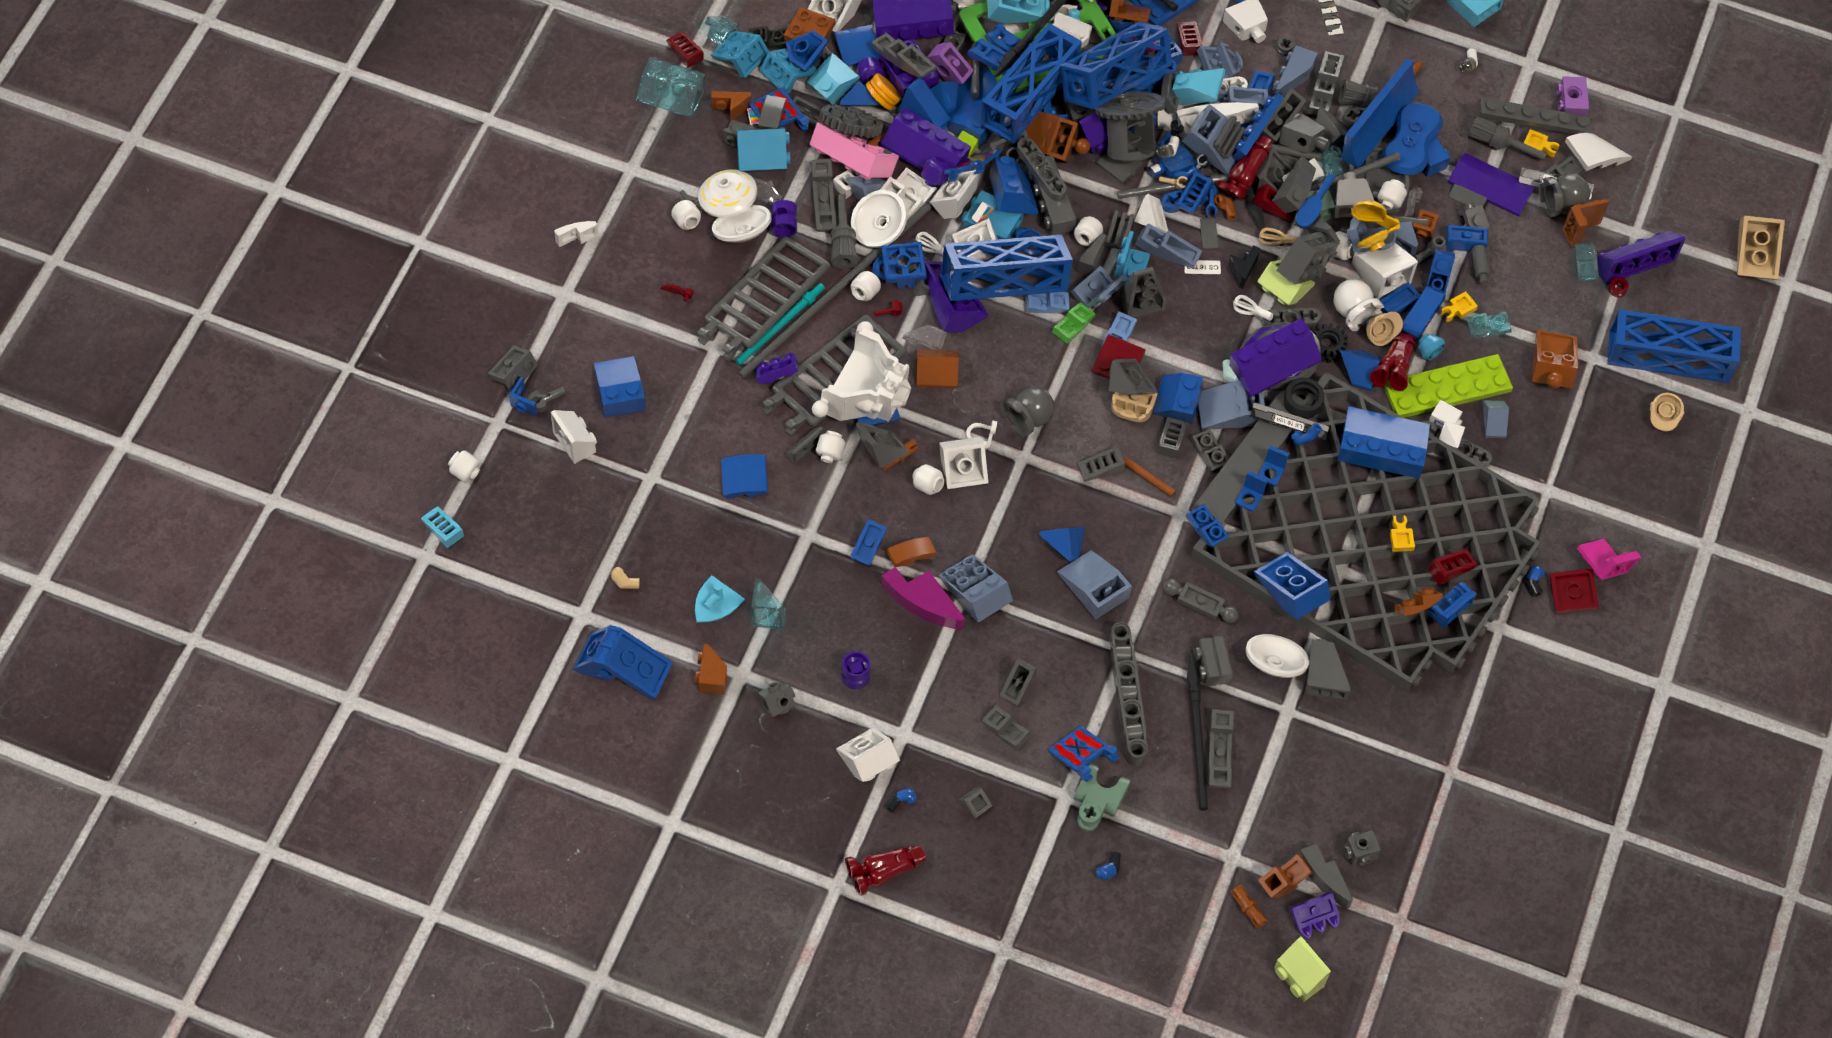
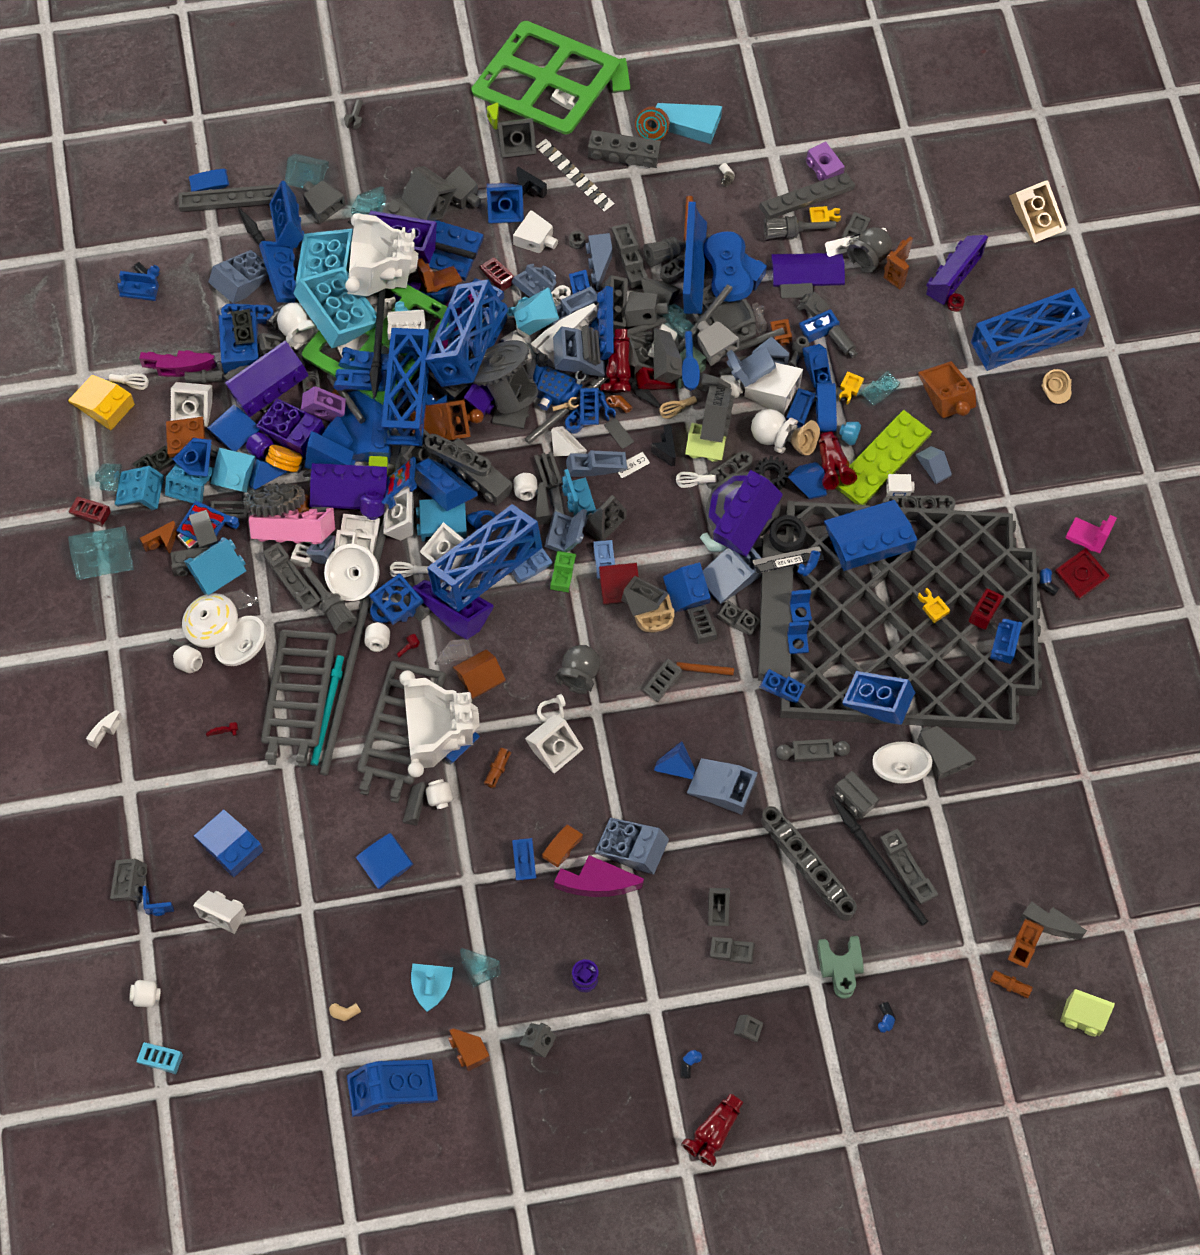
camera: 30 degrees left, 5 degrees up
(544, 398) = (173, 890): dark grey bar -> none
(777, 368) = (352, 751): dark purple plate -> none
(784, 218) = (271, 615): dark purple wheel -> none
(868, 754) = (640, 1041): white slope -> none
(881, 444) = (480, 767): dark grey slope -> none
(903, 56) = (284, 419): dark grey slope -> none
(928, 479) = (535, 775): white head -> none
(982, 212) = (434, 519): white tile -> none
(1080, 749) = (802, 934): blue flag -> none
(1167, 93) = (512, 328): dark grey plate -> none
(1168, 150) = (548, 380): clear smoke arm -> none
(1315, 912) = (1063, 958): dark purple plate -> none
(1361, 848) = (1064, 883): dark grey brick -> none
(1374, 212) = (750, 346): yellow animal -> none
(1392, 194) = (745, 322): white head -> none
(1421, 602) = (984, 653): dark orange slope -> none
(1451, 433) = (914, 498): white slope -> none
(1586, 261) = (920, 294): clear light blue slope -> none
(1595, 151) = (869, 199): white slope -> none

